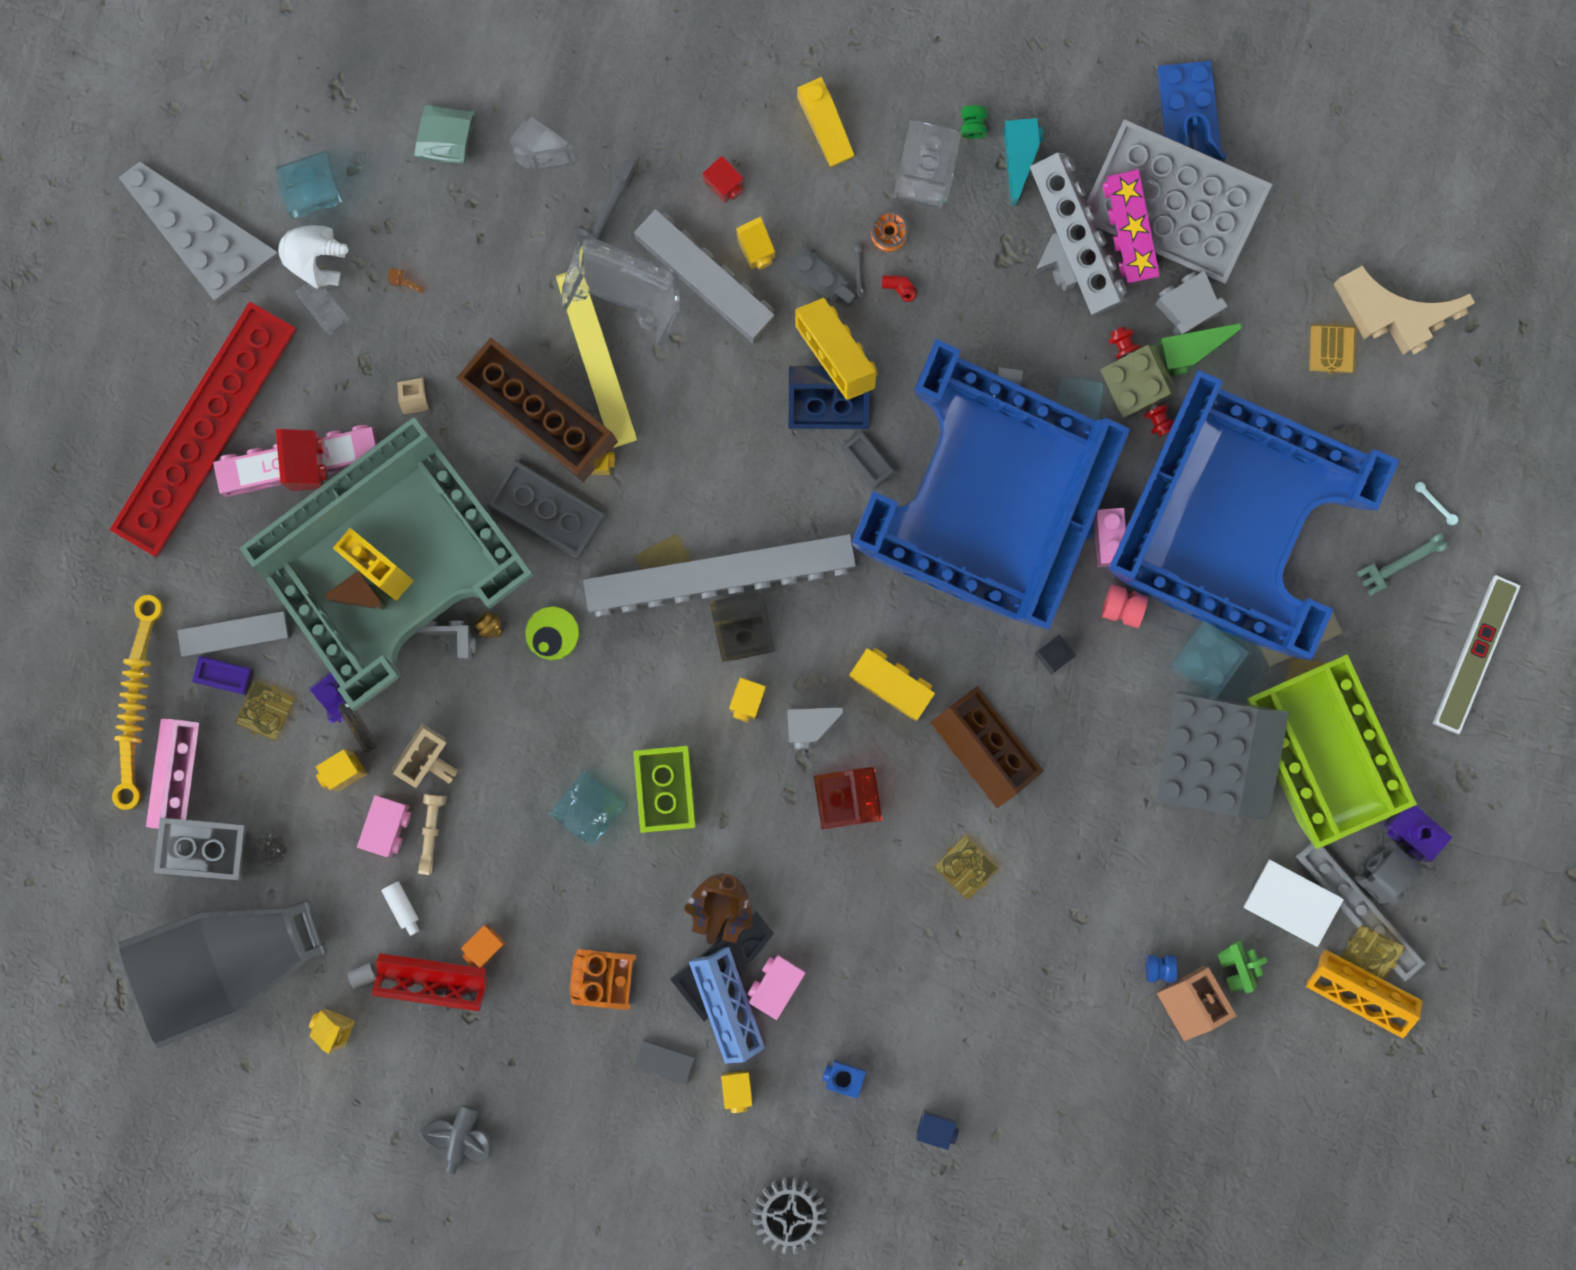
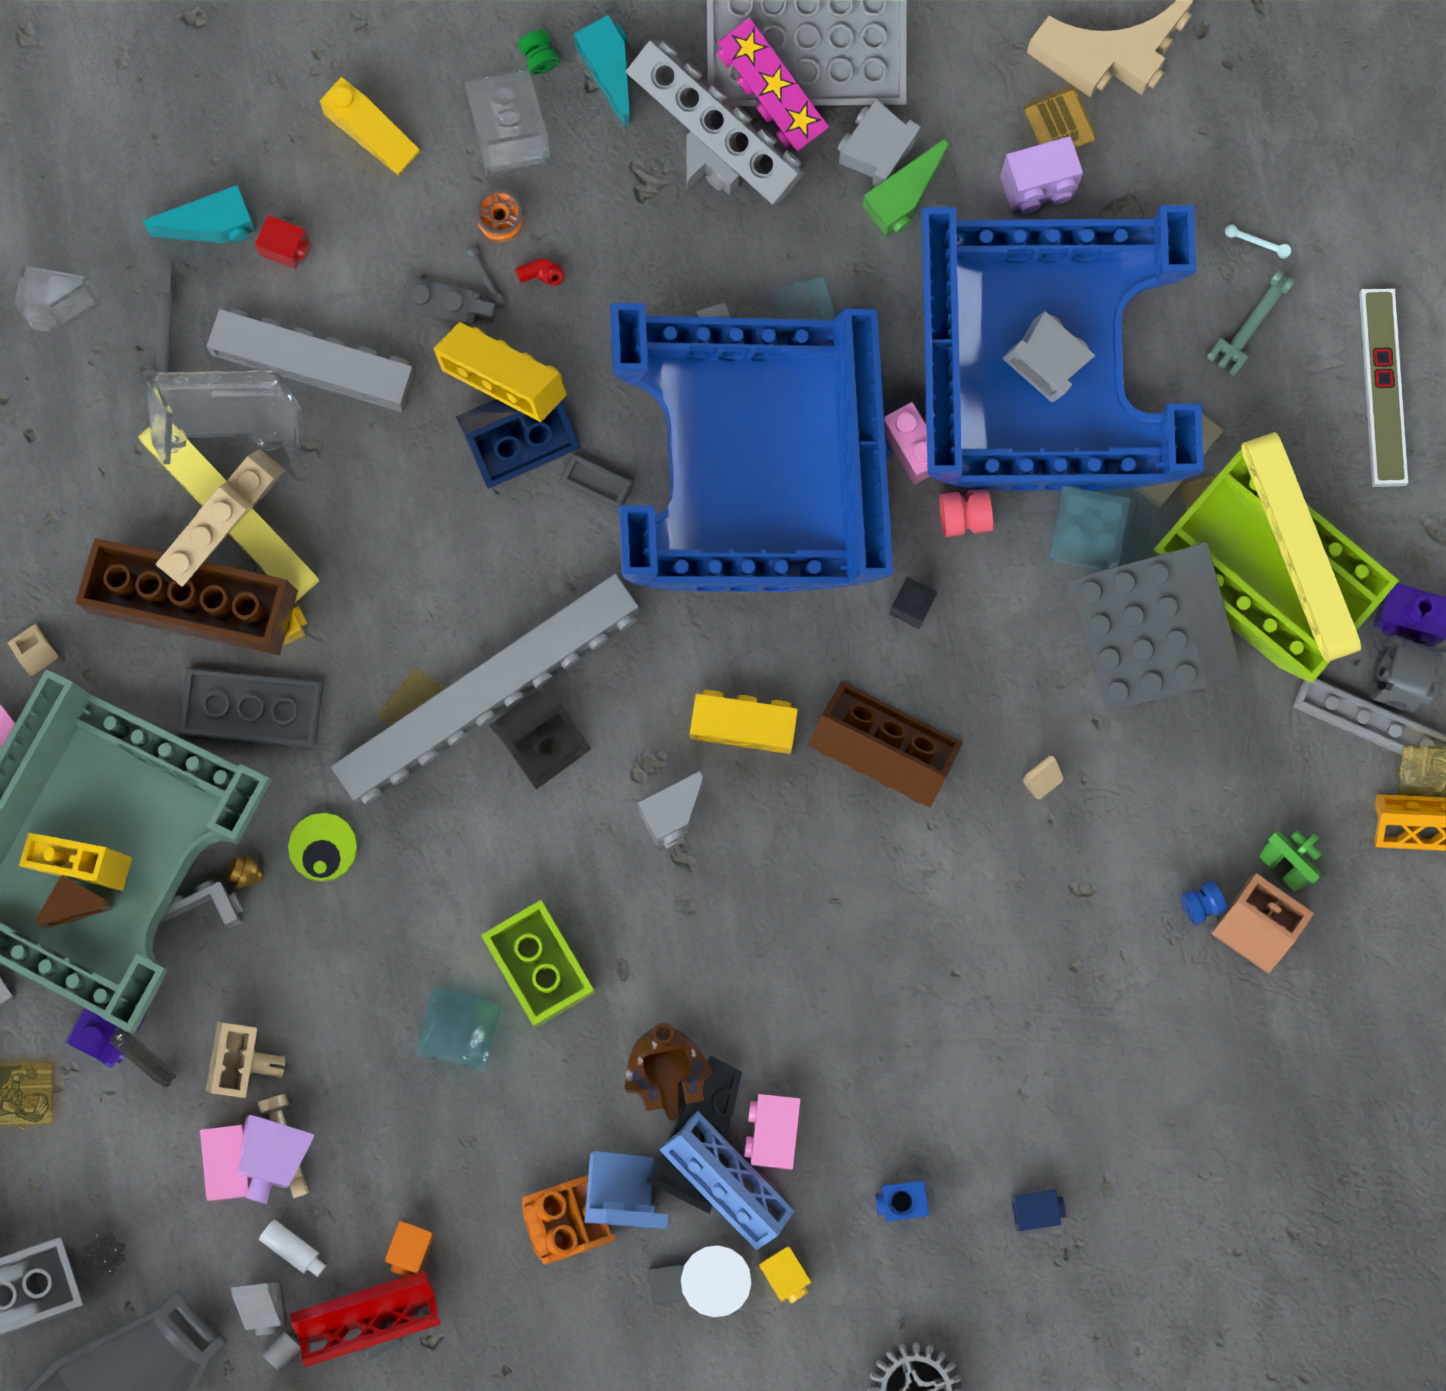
camera: 30 degrees left, 5 degrees down
(340, 770) = (146, 1120): yellow brick -> none
(360, 938) = (260, 1307): none -> light grey slope
(414, 837) = (270, 1155): none -> lavender torso
(586, 363) = (220, 516): none -> tan arch
(647, 978) = (620, 1191): none -> medium blue bracket
(682, 139) = (209, 219): none -> teal slope
(686, 1072) = (716, 1281): none -> white tile
(747, 700) = (585, 816): yellow brick -> none
(756, 244) = (353, 296): yellow slope -> none
(848, 798) = (754, 876): clear red slope -> none
(966, 867) = (927, 893): clear yellow piece -> none
(1089, 824) = (1043, 777): none -> tan slope
(1139, 381) = (862, 254): olive brick -> none
(1239, 520) = (1048, 356): none -> light grey hips
(1293, 903) = (1315, 758): white tile -> none
(1299, 383) = (1041, 175): none -> lavender brick
(1356, 747) = (1301, 547): none -> light yellow beam

